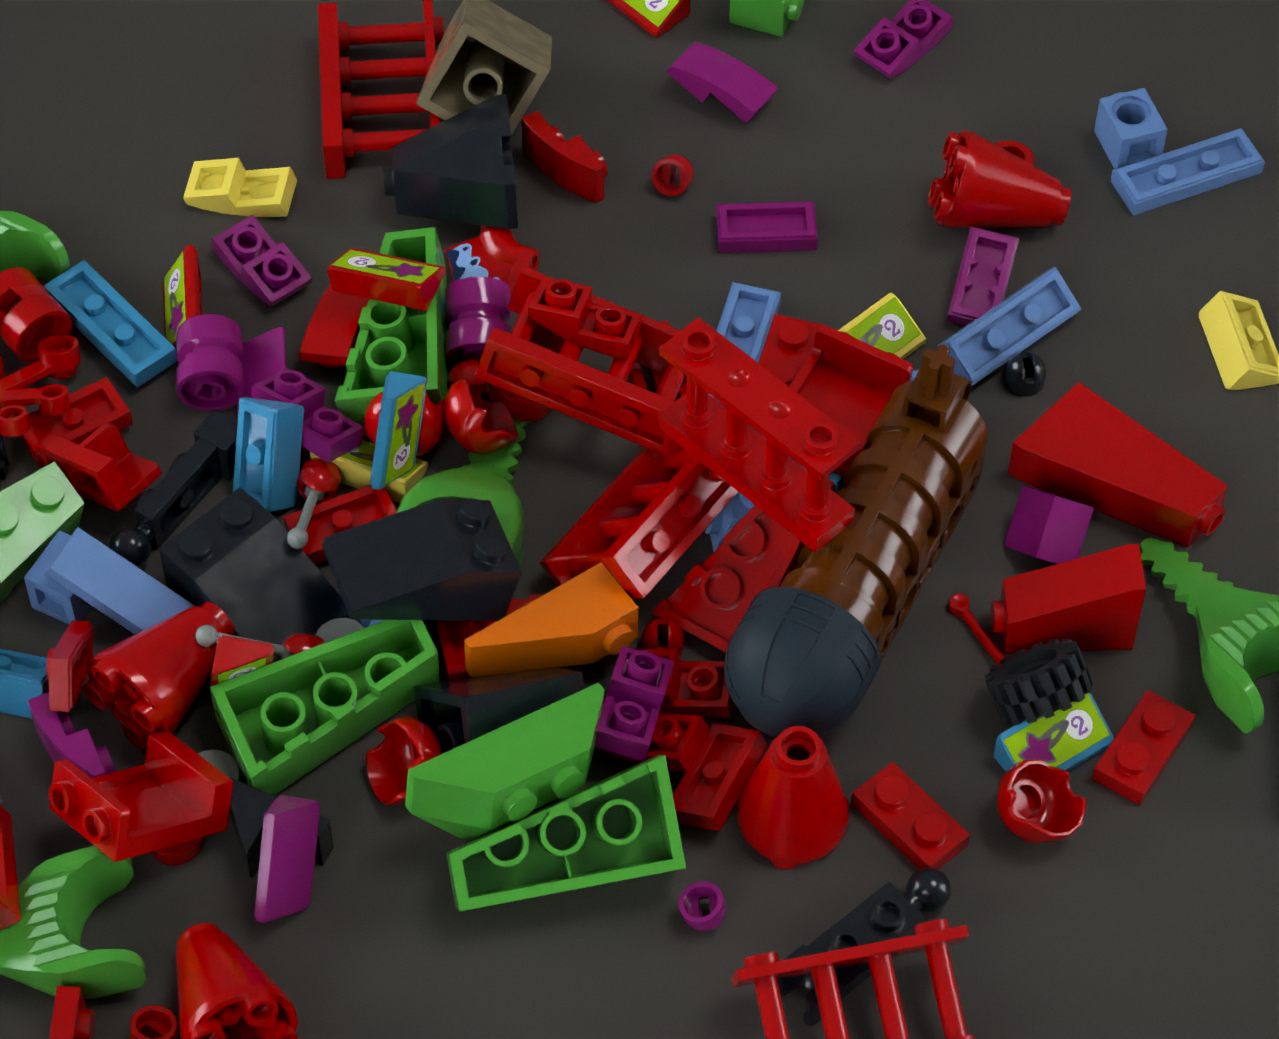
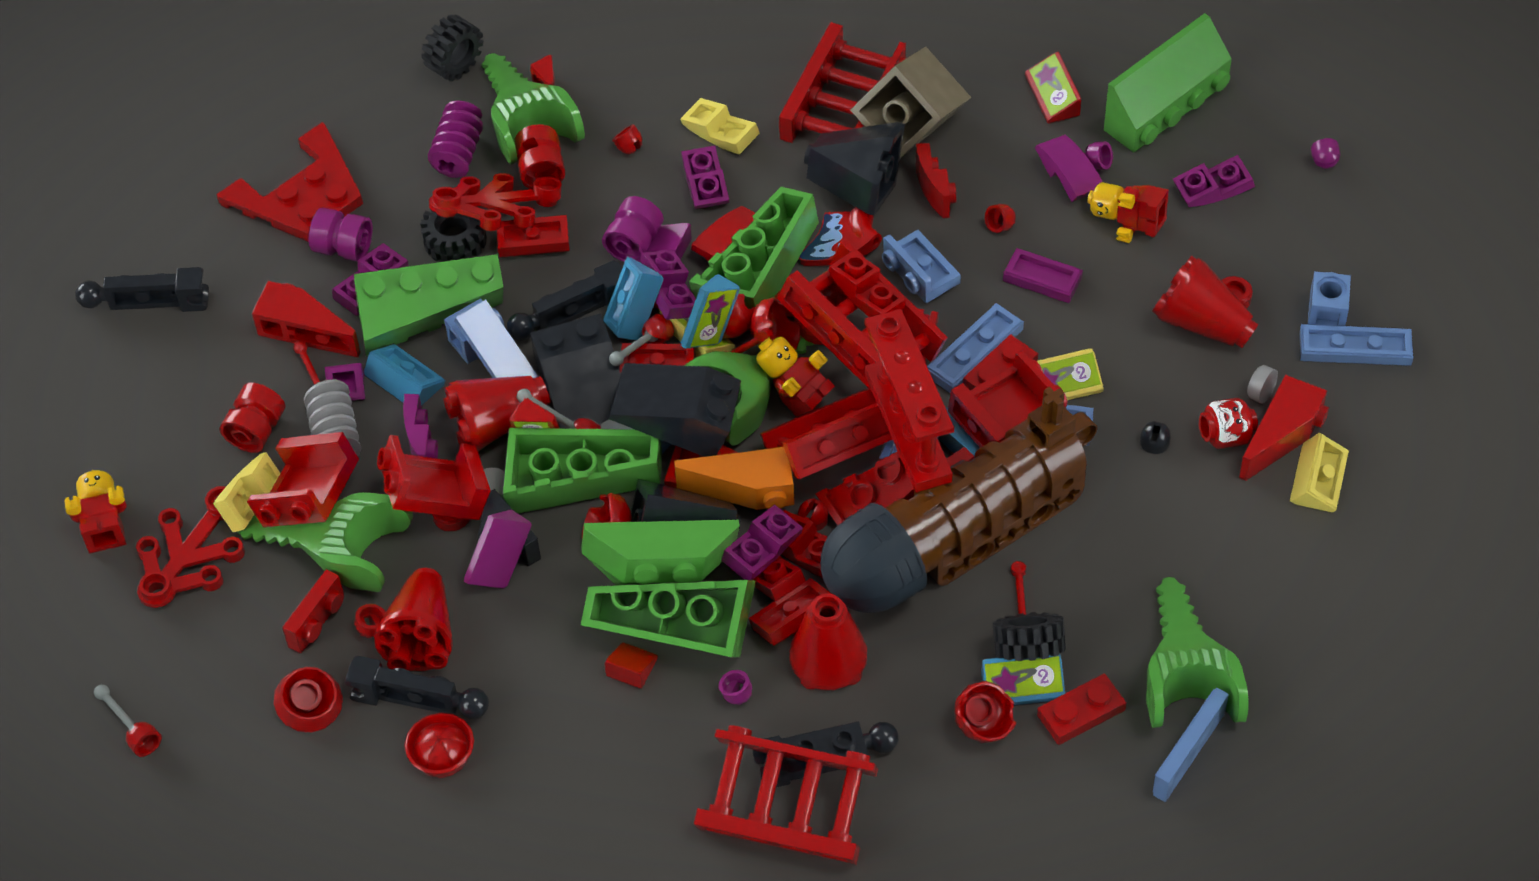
camera: 30 degrees right, 0 degrees up
(68, 665) = (433, 380): red plate -> none
(101, 466) = (529, 268): red panel -> none
(112, 324) = (589, 182): dark azure plate -> none
(129, 249) = (628, 140): none -> red hinge
(182, 292) = (648, 177): slope -> none
(385, 278) = (761, 215): red slope -> none
(473, 310) = (810, 257): magenta wheel -> none
(481, 433) = (761, 336): none -> red hinge
(543, 937) = (630, 664): none -> red slope
(544, 471) = (795, 378): none -> piece
(612, 269) = (919, 265): none -> medium blue bracket
(749, 51) = (1100, 154): none -> magenta hinge
(834, 100) = (1134, 207): none -> piece
(910, 818) = (901, 689): red plate -> none
(982, 275) = (1163, 364): magenta plate -> none
(1011, 326) = (1160, 402): medium blue tile -> none
(1048, 526) = (1105, 542): magenta panel -> none
(1082, 600) = (1085, 596): red slope -> none
(1106, 321) = (1228, 423): none -> red head
(1114, 258) = (1262, 384): none -> light grey tile
(1118, 467) = (1173, 521): red slope -> none
(1171, 289) = (1286, 424): none -> red slope

